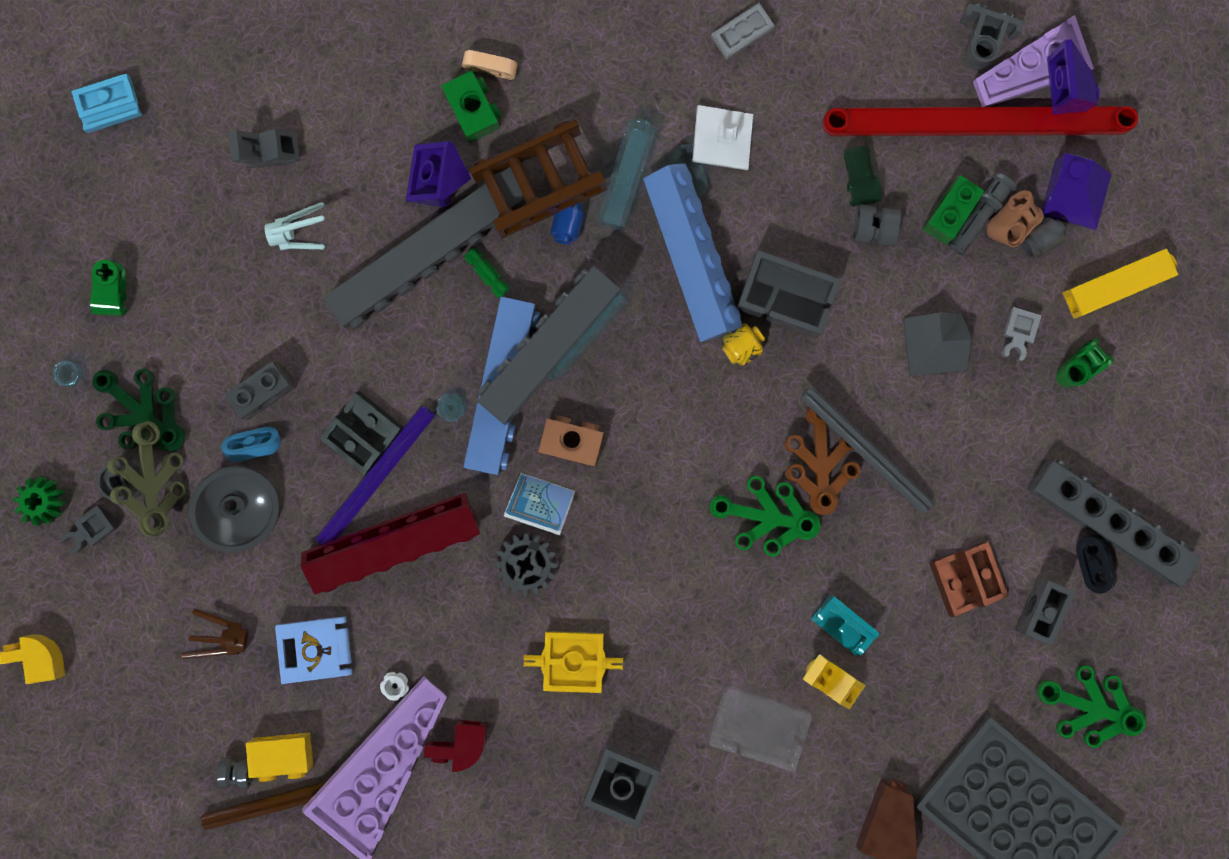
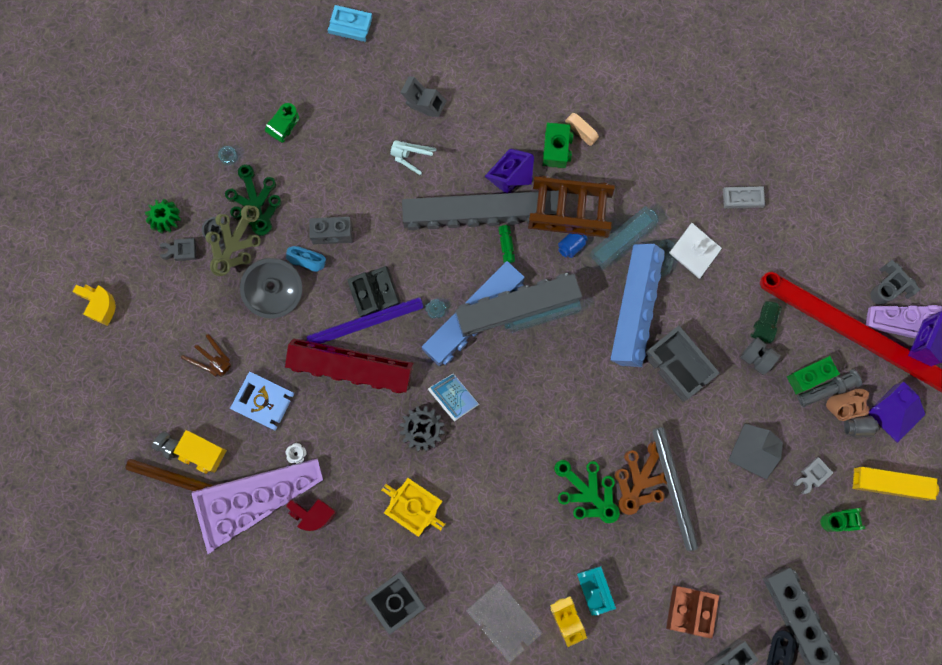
camera: 30 degrees right, 10 degrees down
(553, 440) = (501, 383): nougat brick -> none
(743, 344) = (635, 378): yellow head -> none

